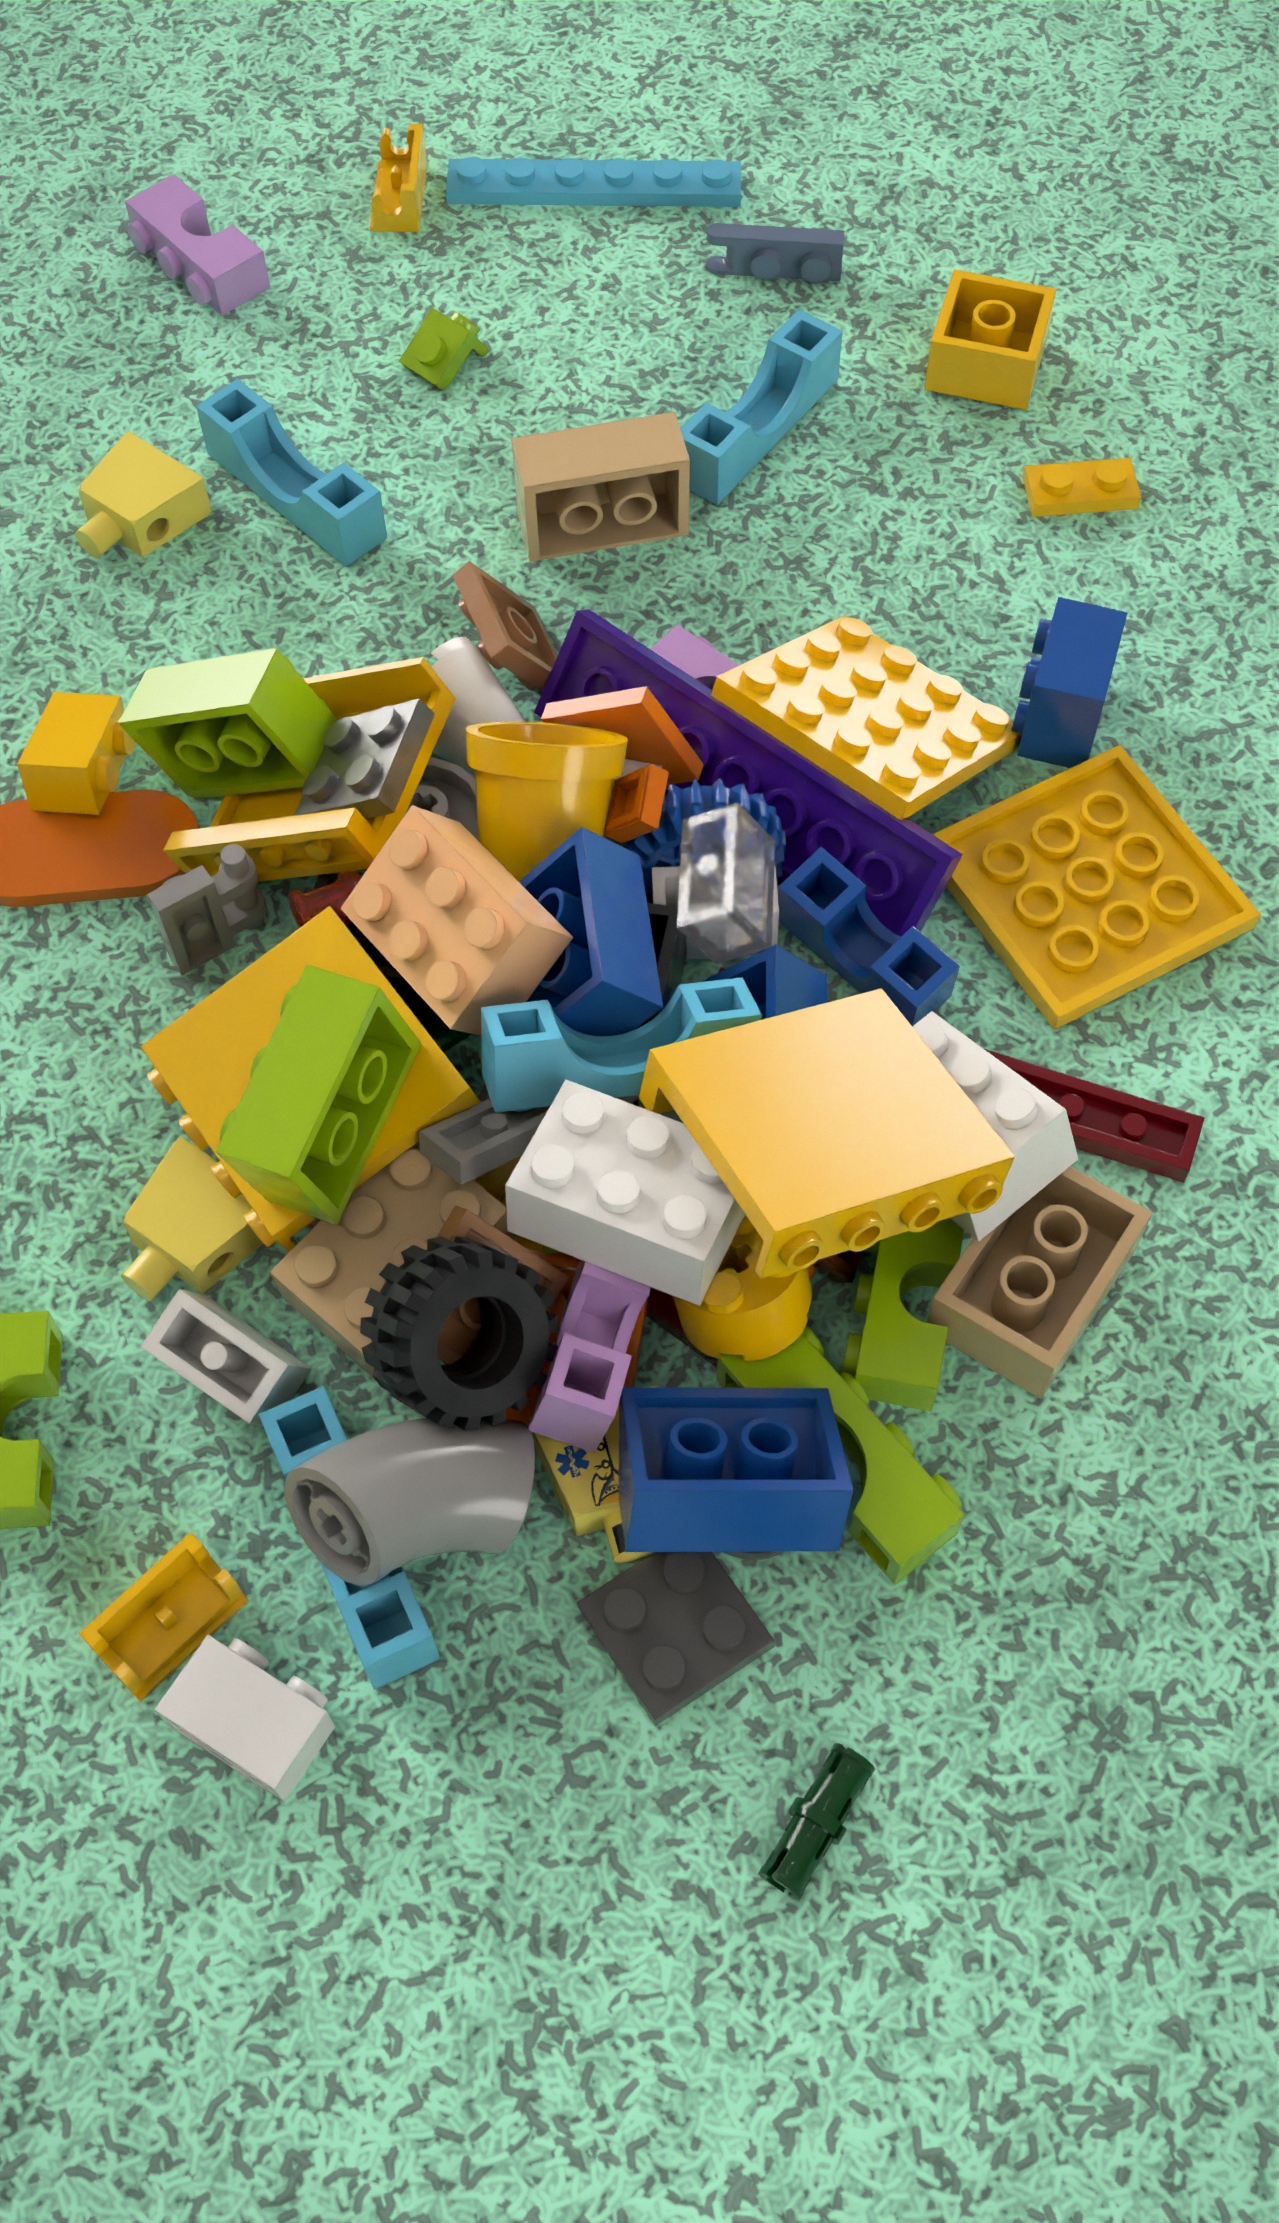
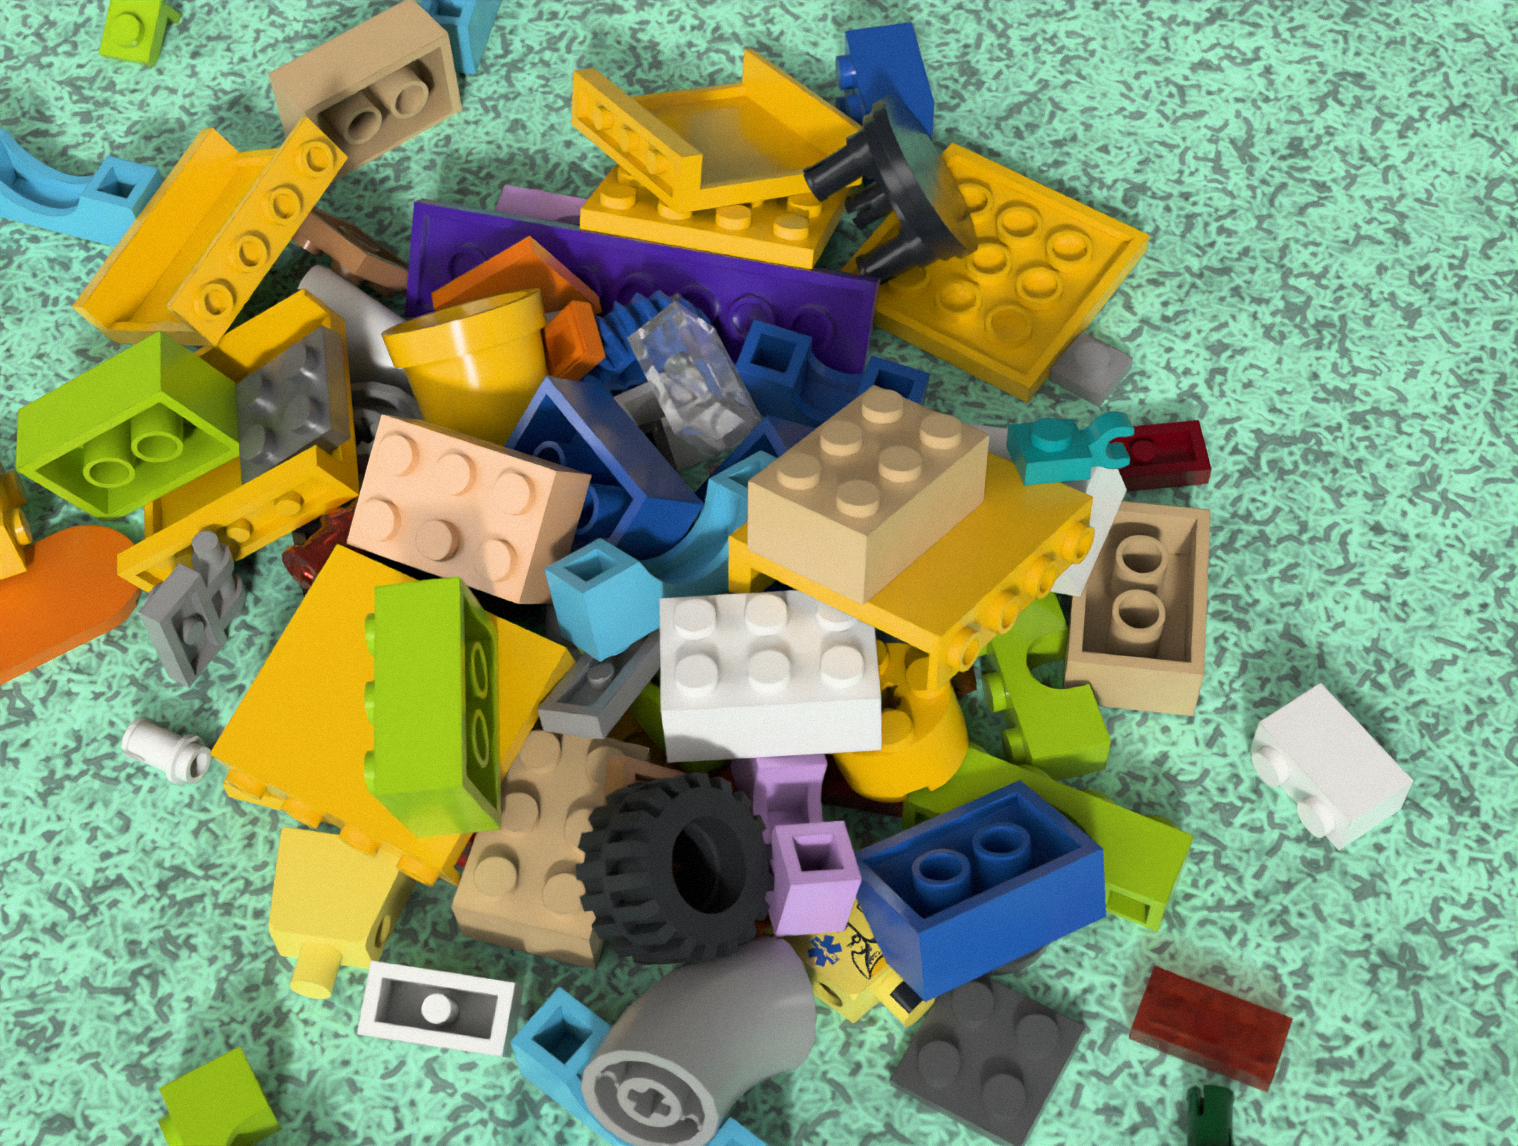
camera: 25 degrees left, 5 degrees down
(128, 1021) = (179, 756): none -> white pin
(387, 572) = (209, 237): none -> yellow panel
(790, 1064) = (867, 493): none -> tan brick
(887, 1698) = (1211, 1029): none -> clear red plate
(893, 659) = (713, 141): none -> yellow panel
(1011, 1100) = (1060, 452): none -> teal plate
(1043, 772) = (909, 181): none -> black piece
(1133, 1022) = (1090, 369): none -> light grey plate
(1137, 1508) = (1328, 767): none -> white brick

